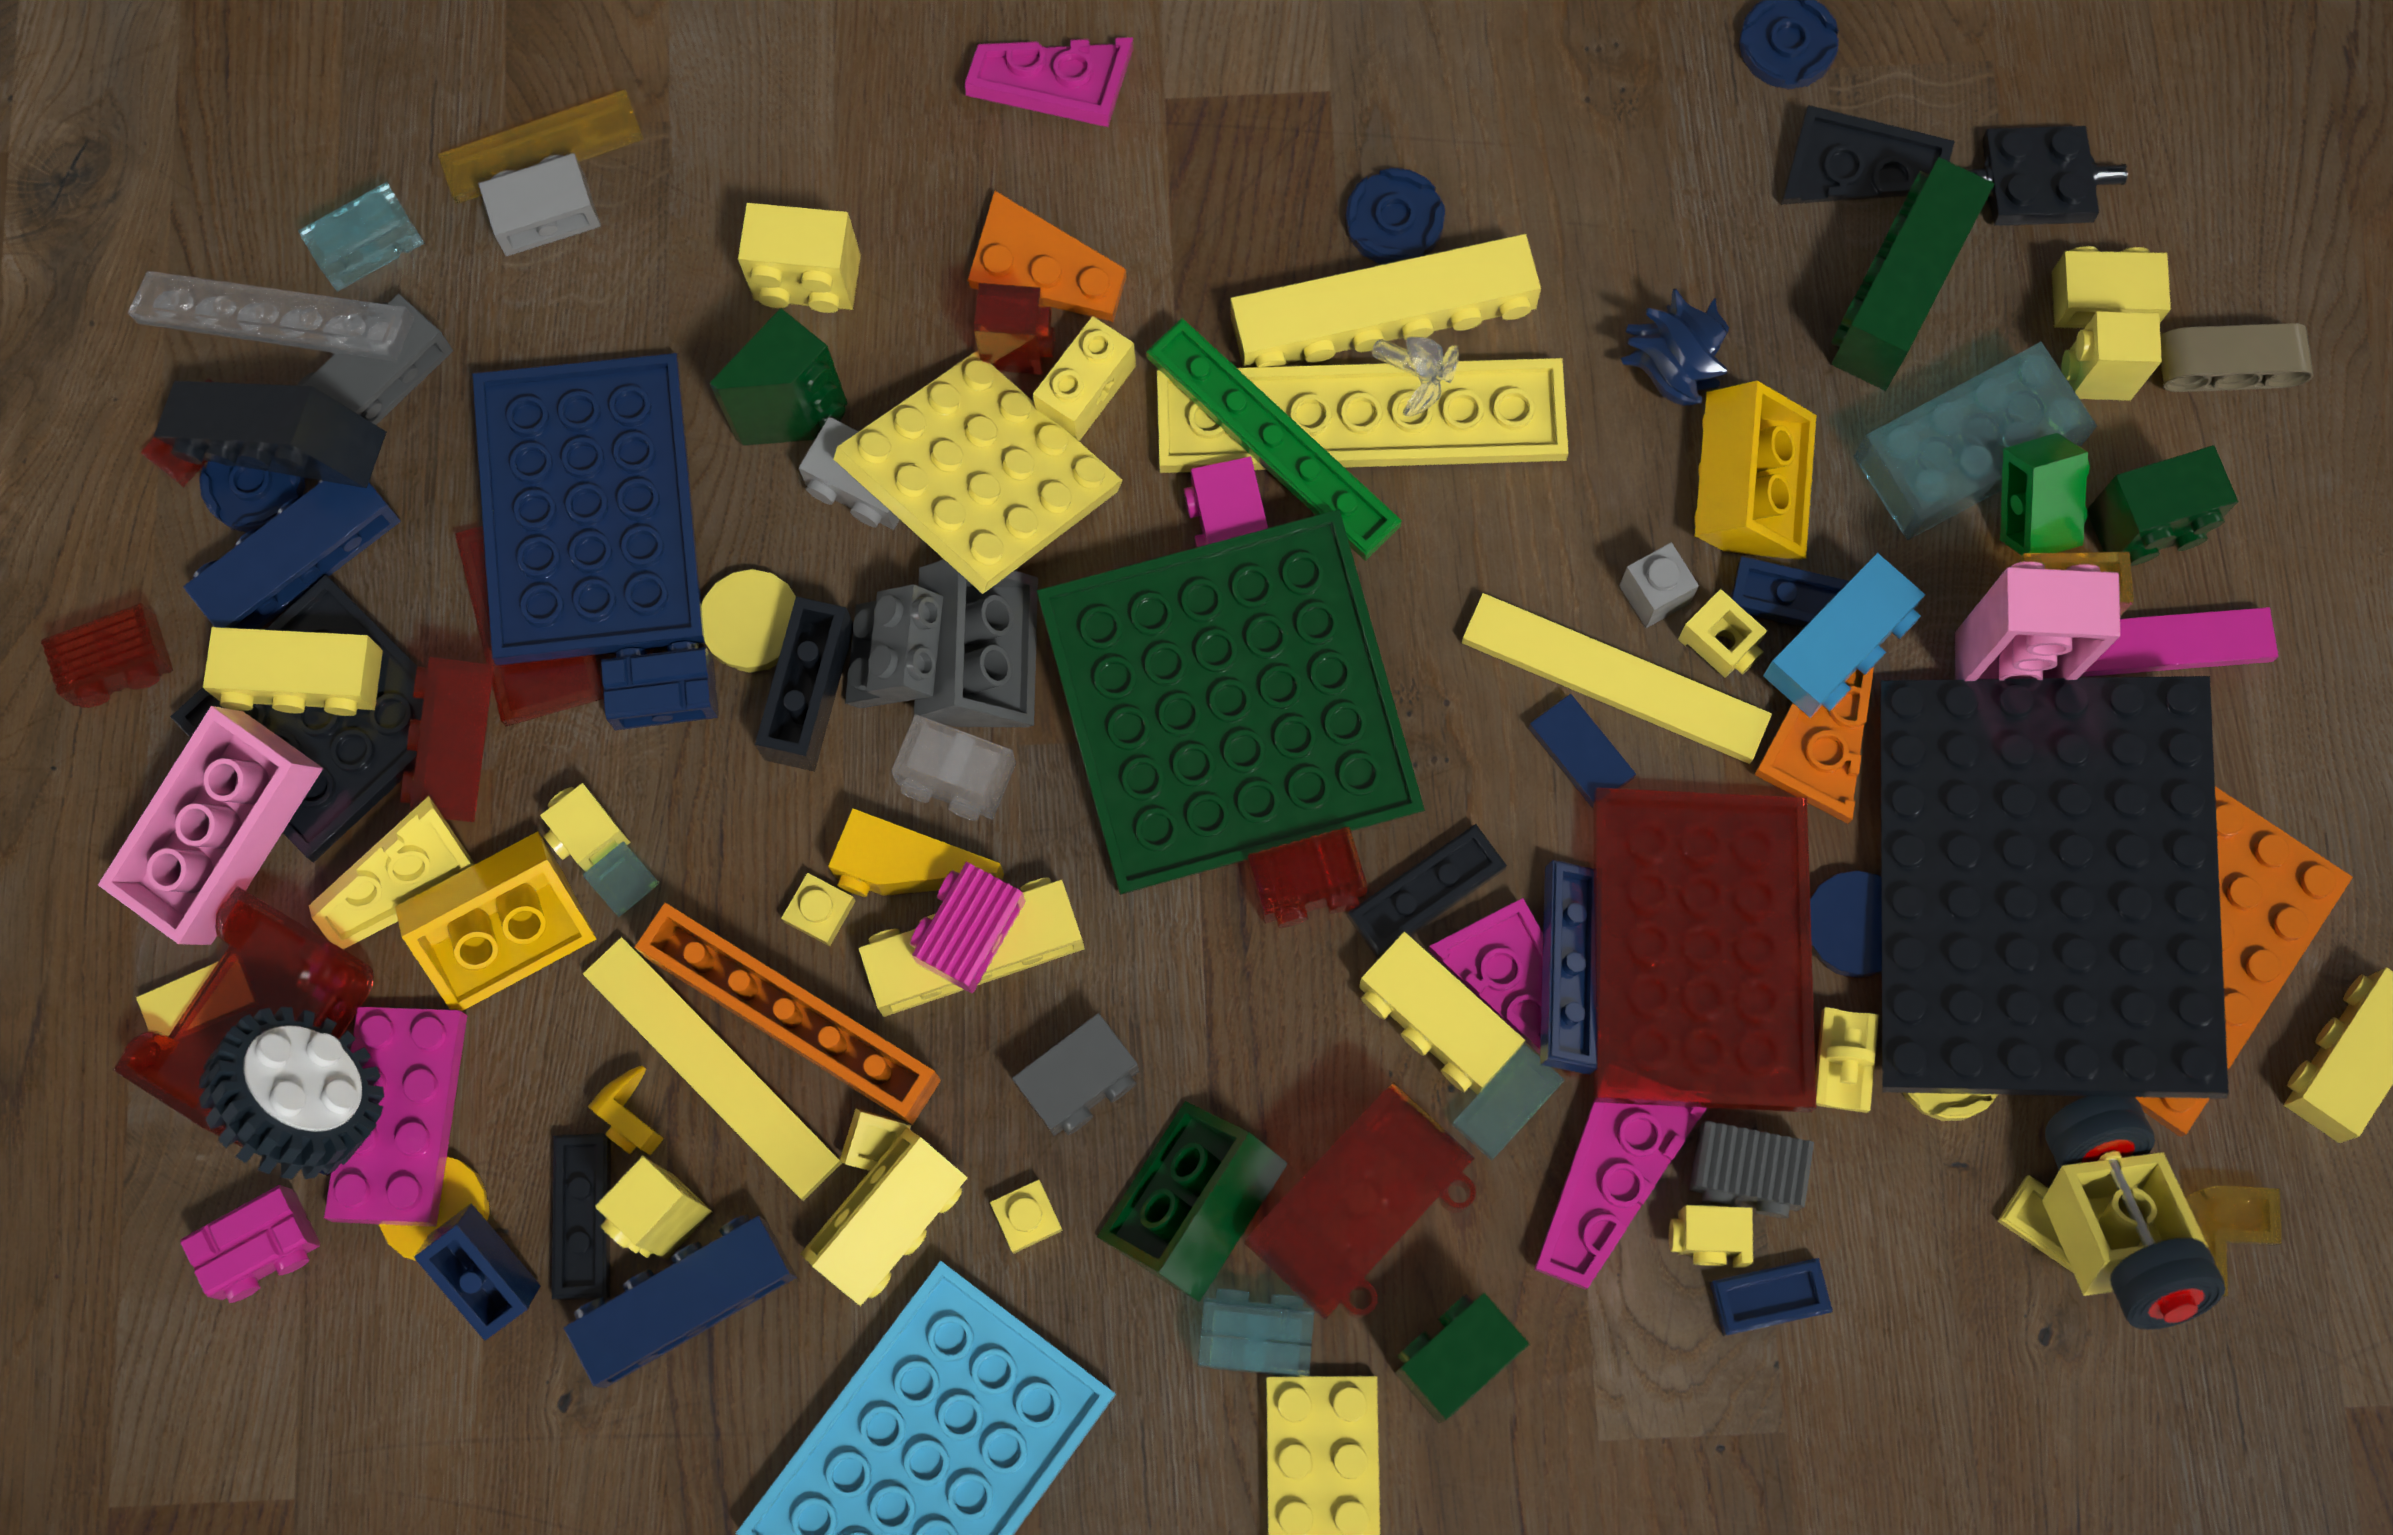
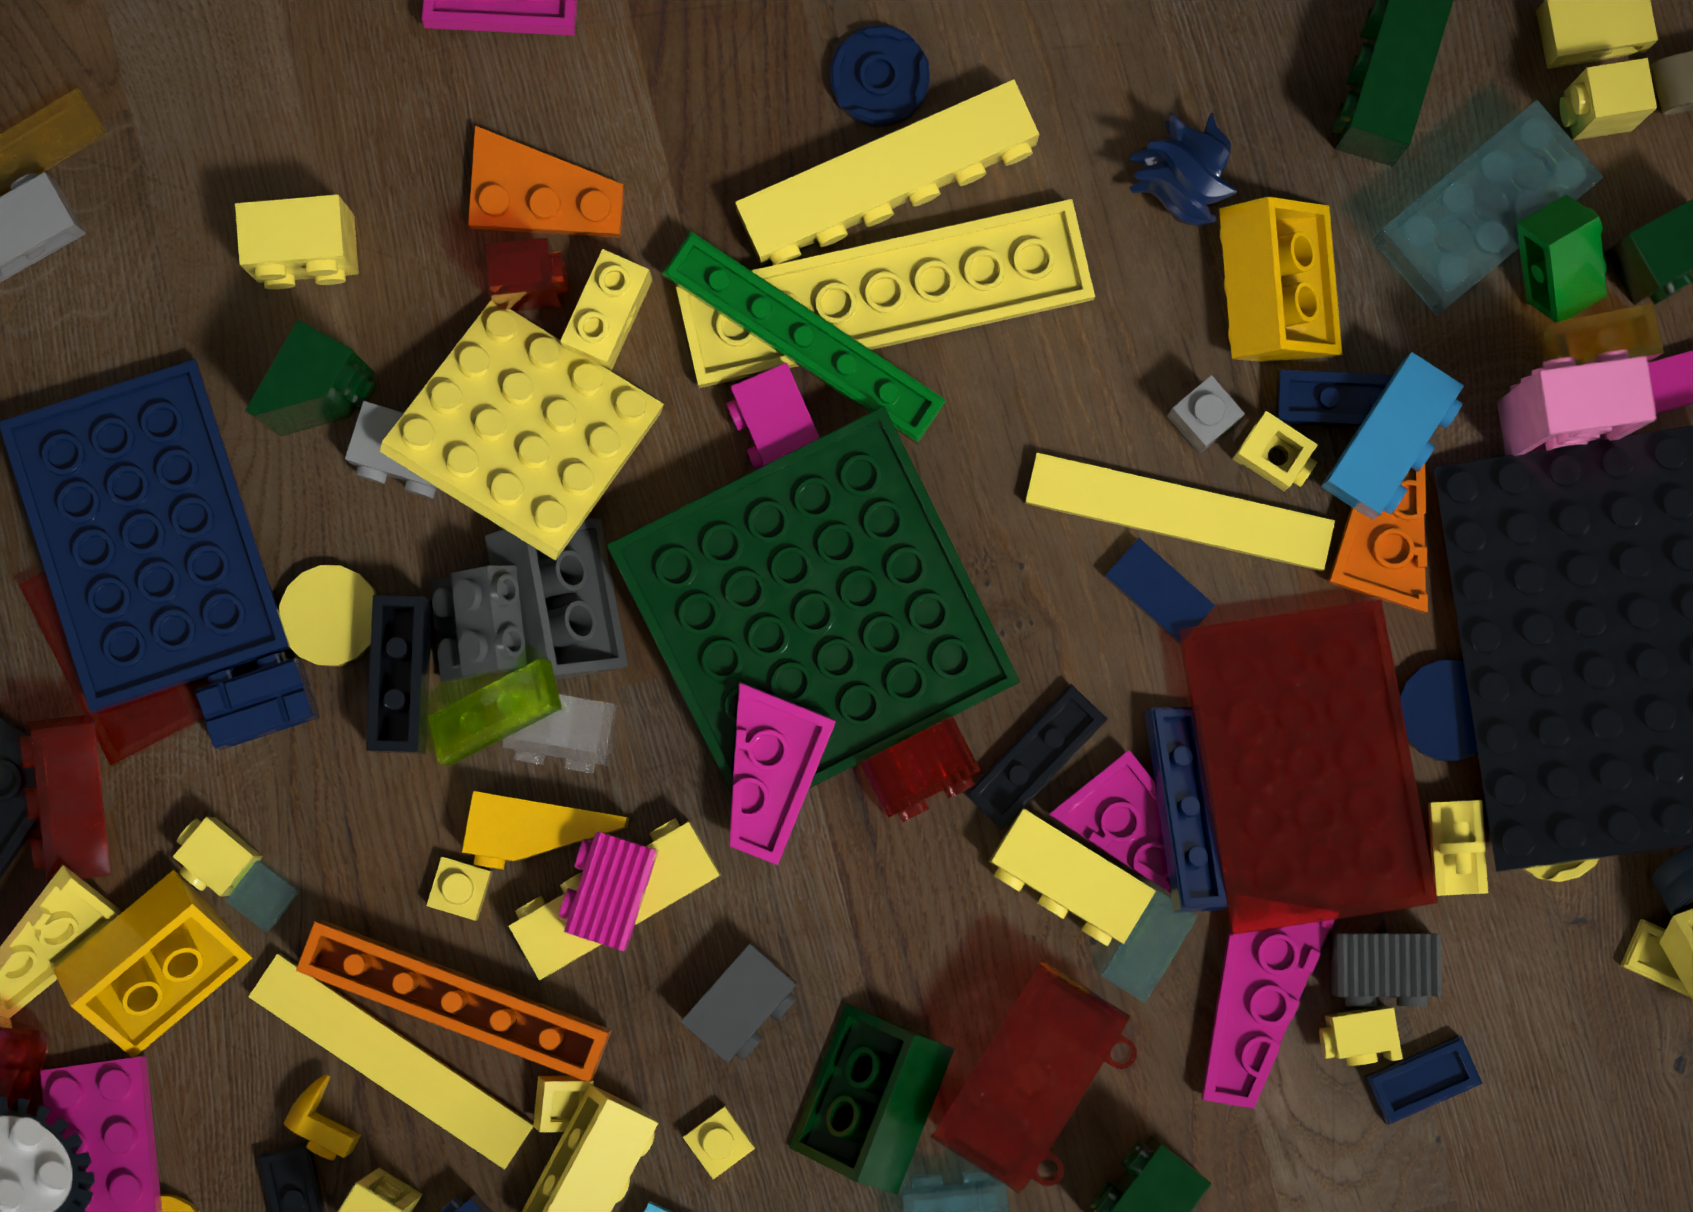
camera: 15 degrees left, 10 degrees up
(891, 735) = (494, 712): none -> clear neon green tile
(1157, 843) = (773, 769): none -> dark pink wing
(1424, 360) = (938, 235): clear plant -> none

